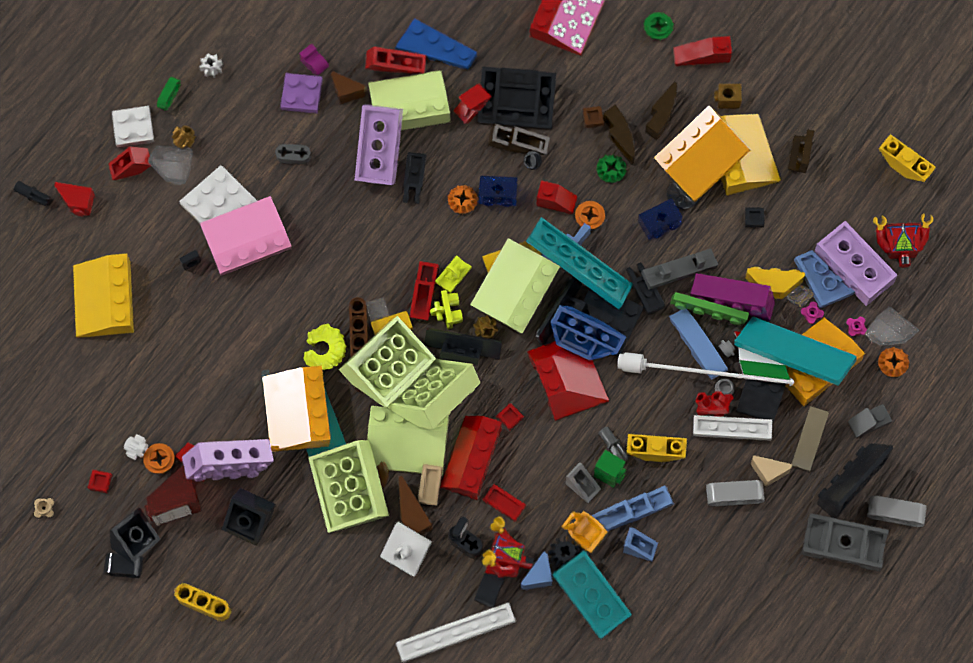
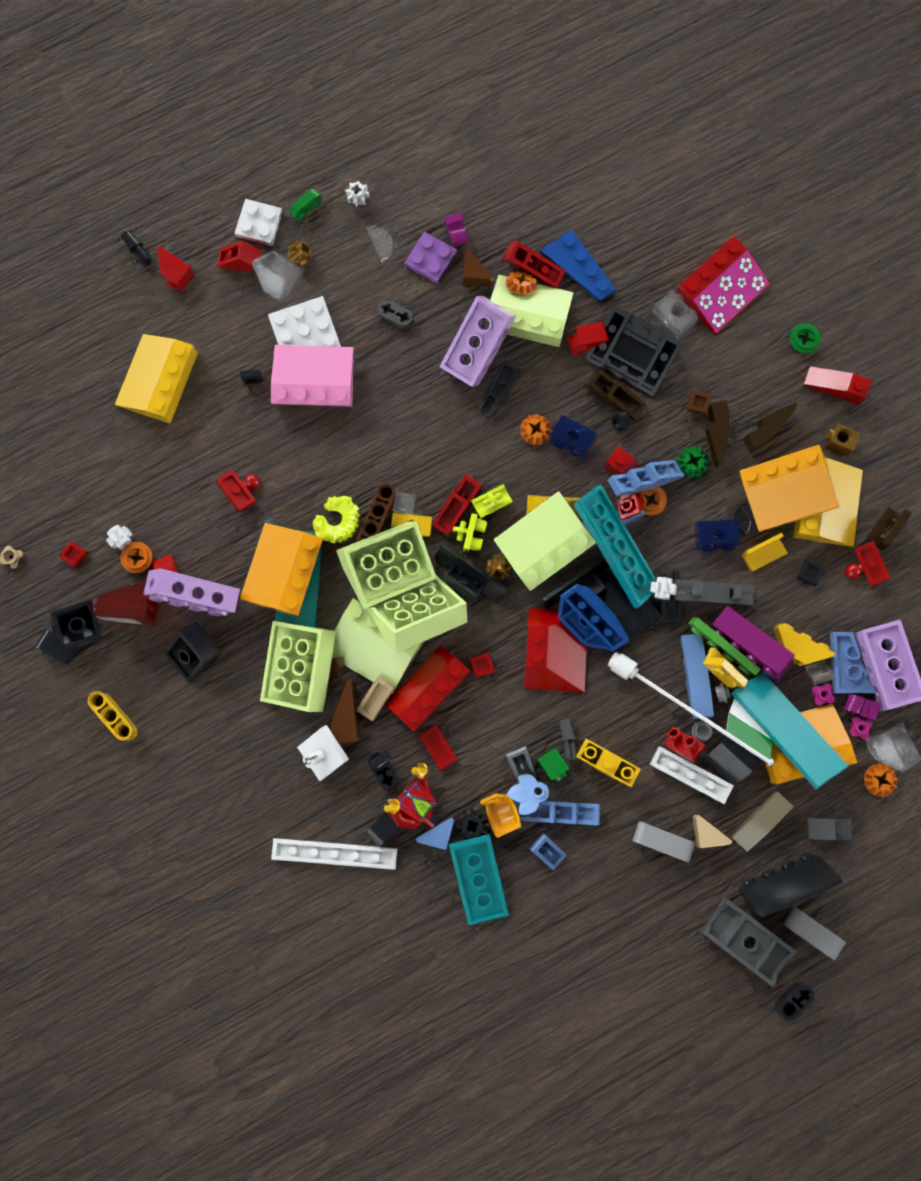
camera: 25 degrees right, 10 degrees up
(224, 362) = (238, 491): none -> red plate
(251, 97) = (382, 241): none -> clear tile
(398, 83) = (527, 287): none -> orange gear
(543, 60) = (675, 324): none -> clear brick
(573, 222) = (630, 505): none -> red slope
(577, 198) = (646, 478): none -> medium blue slope
(598, 504) = (525, 794): none -> light blue plate
(635, 281) = (663, 588): none -> white gear
(707, 217) = (764, 553): none -> yellow panel
(718, 326) = (724, 669): none -> yellow bracket
(801, 188) = (870, 564): none -> red plate
(849, 308) = (862, 707): none -> magenta leg
(909, 577) = (796, 1008): none -> black beam

